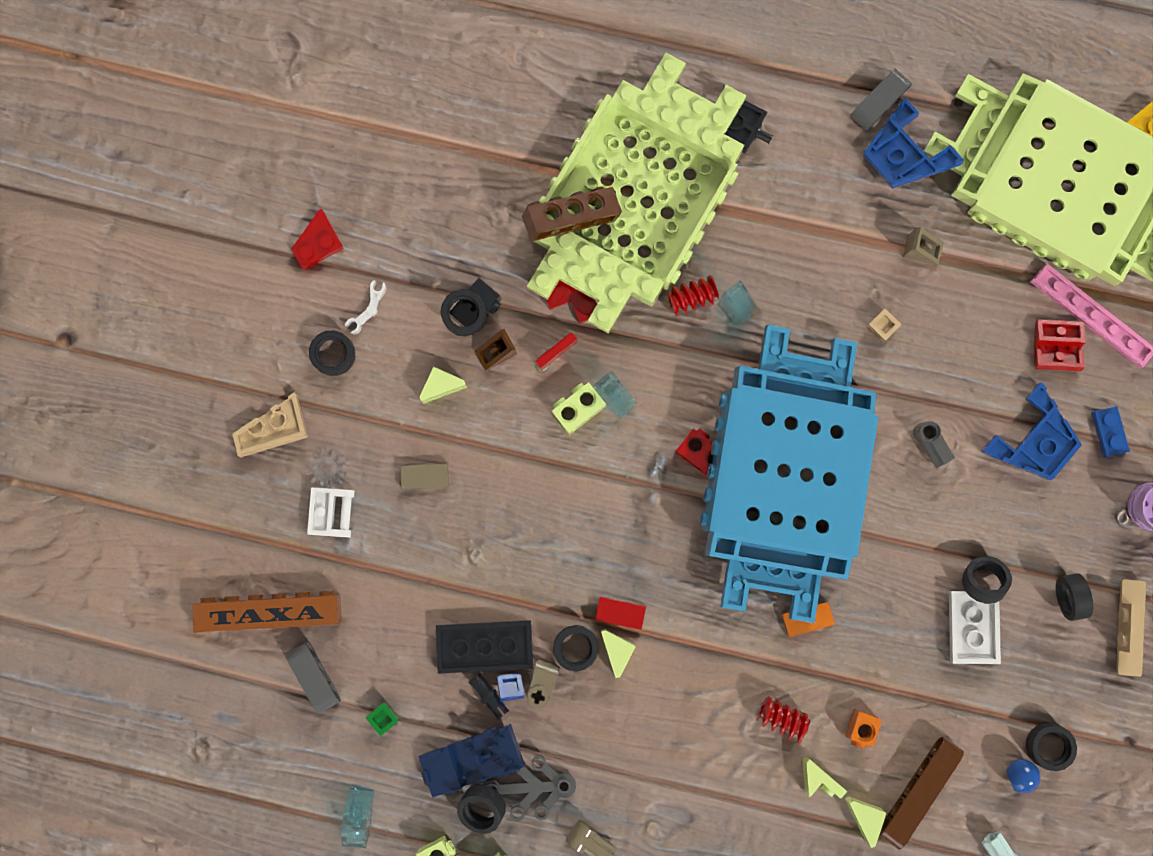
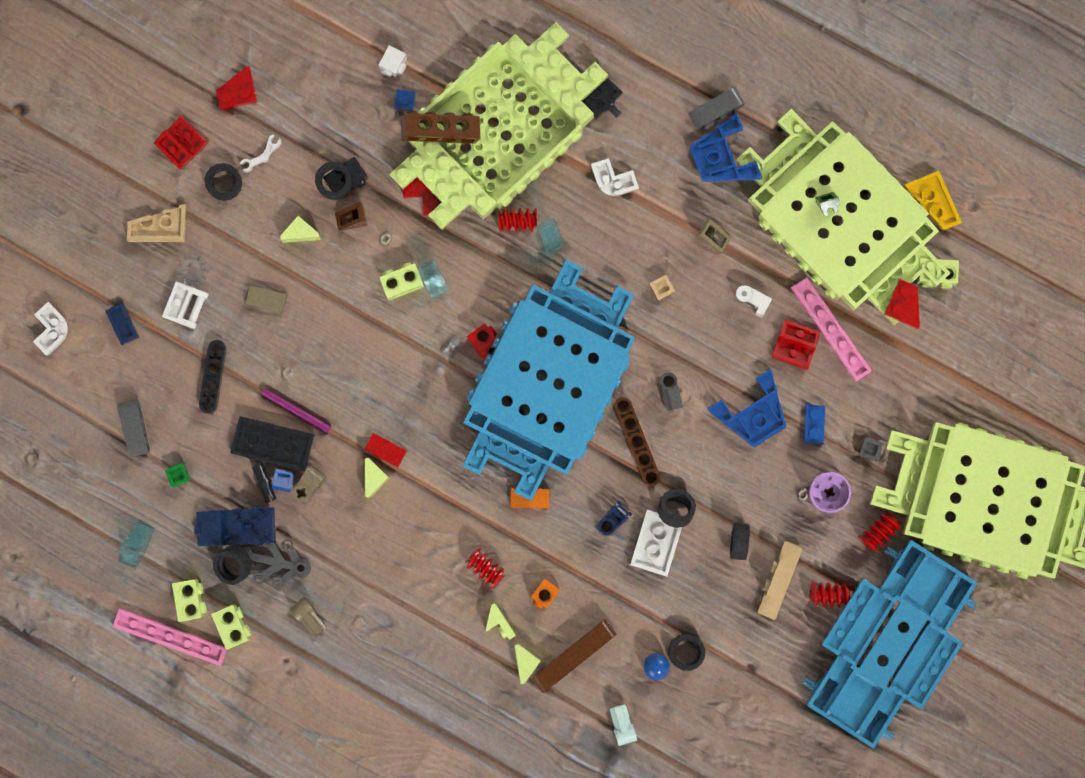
camera: 20 degrees right, 0 degrees up
(184, 586) = (56, 329): none -> white plate
(262, 556) = (122, 324): none -> dark blue tile
(267, 613) = (113, 368): dark orange brick -> none
(268, 321) = (181, 142): none -> red slope
(392, 587) = (209, 376): none -> black beam
(489, 155) = (393, 62): none -> white brick
(501, 598) = (296, 410): none -> magenta bar
(516, 195) = (405, 100): none -> blue plate
(556, 351) = (398, 232): red tile -> none
(575, 666) = (342, 480): black tyre -> none
(785, 221) = (612, 184): none -> white plate
(916, 613) = (614, 518): none -> dark blue piece
(923, 520) = (636, 432): none -> reddish brown beam
(995, 306) = (752, 297): none -> white leg
(1052, 166) = (827, 201): none -> tile

